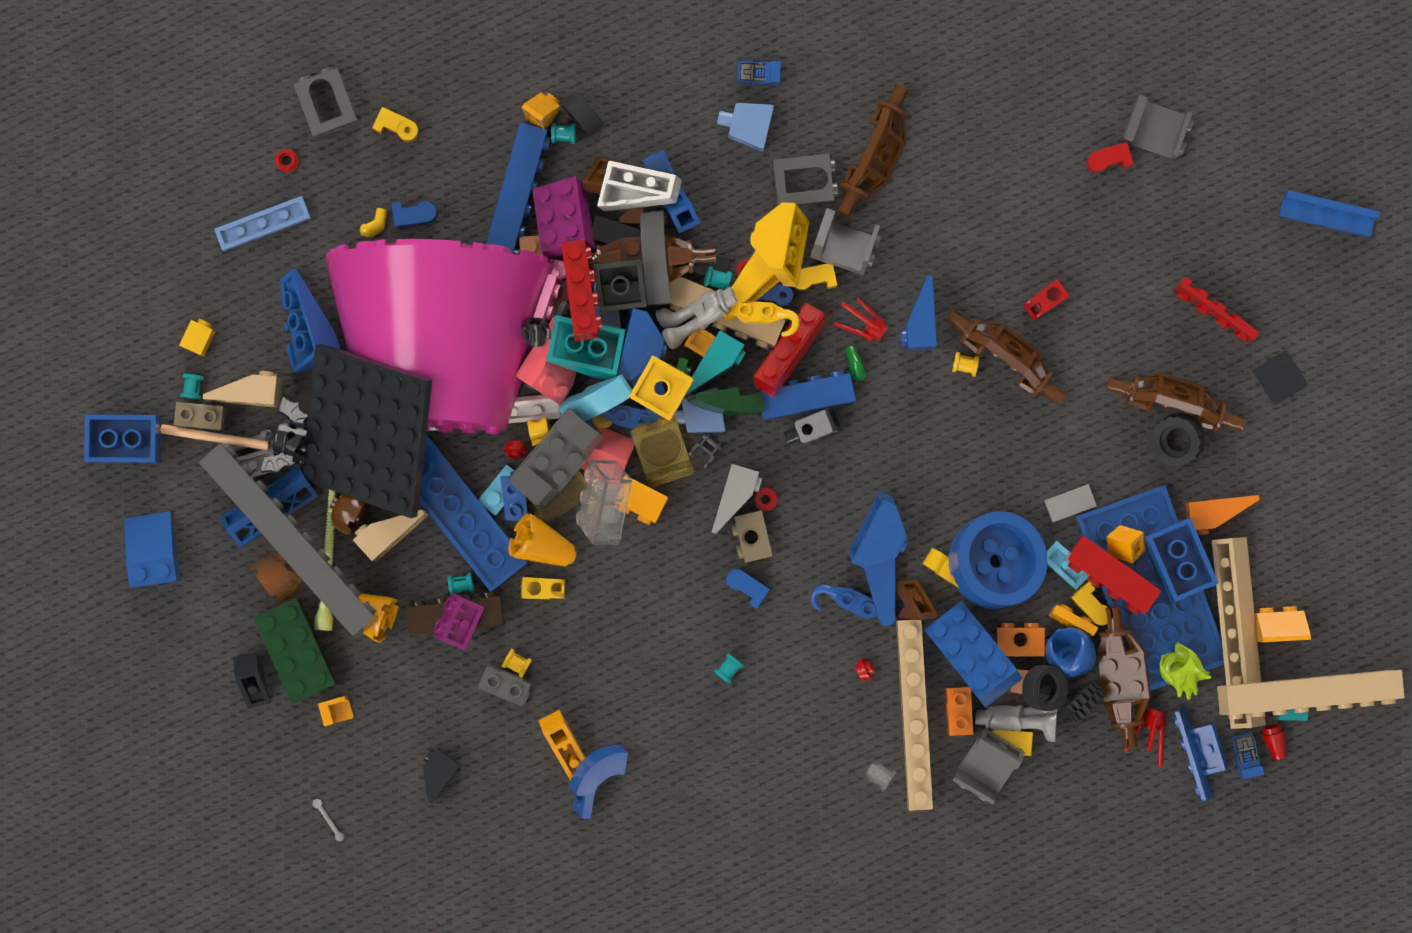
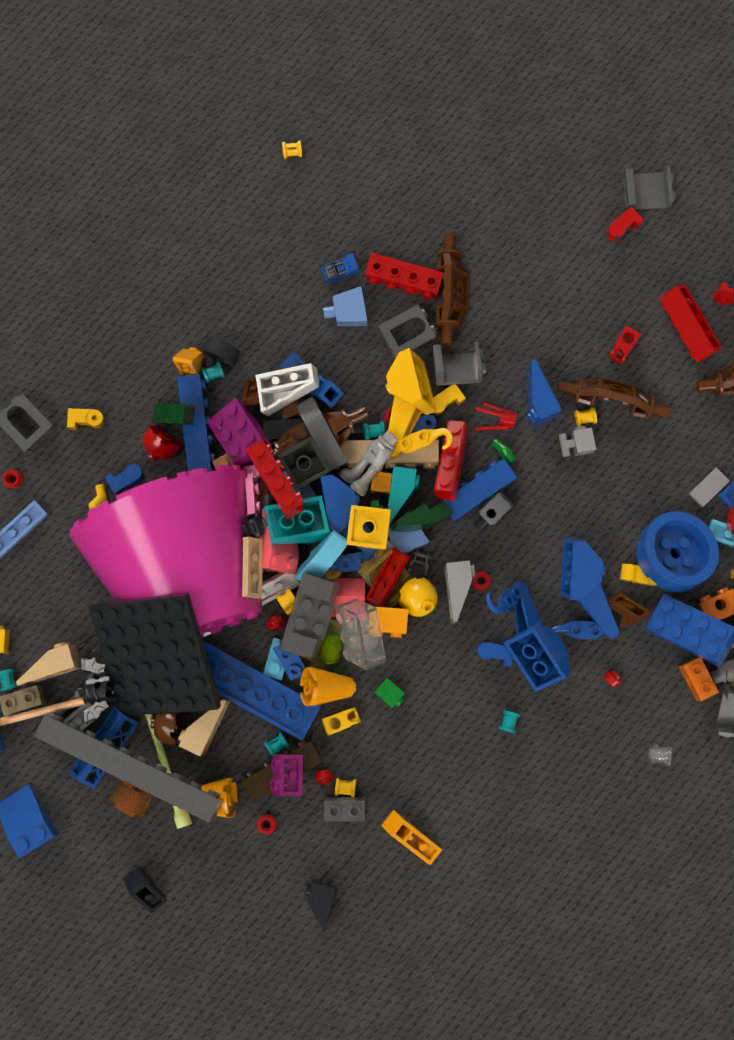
camera: 25 degrees left, 5 degrees down
(295, 650) = (169, 851): dark green brick -> none
(305, 321) = (75, 594): blue wedge -> none
(317, 803) = (236, 966): light grey hinge -> none
(335, 710) = (220, 885): light orange panel -> none
(406, 666) = (271, 819): none -> red plate
(469, 192) = (159, 444): none -> red cylinder
(497, 641) = (323, 777): none -> red plate
(498, 165) = (173, 414): none -> dark green slope
(514, 378) = (252, 567): none -> tan plate
(564, 505) = (330, 649): none -> clear neon green brick
(591, 772) = (440, 847): blue arch -> none
(610, 581) = (390, 693): none -> green brick
(660, 452) = (387, 578): none -> red tile
(686, 488) = (418, 597): none -> yellow cylinder
(755, 522) = (483, 625): dark tan brick -> none
(790, 599) = (534, 647): none -> blue slope
(829, 112) = (404, 276): none -> red brick
(914, 715) = (666, 697): tan brick -> none
(948, 390) = (581, 442): none -> light grey brick
(1133, 306) = (690, 323): none -> red brick

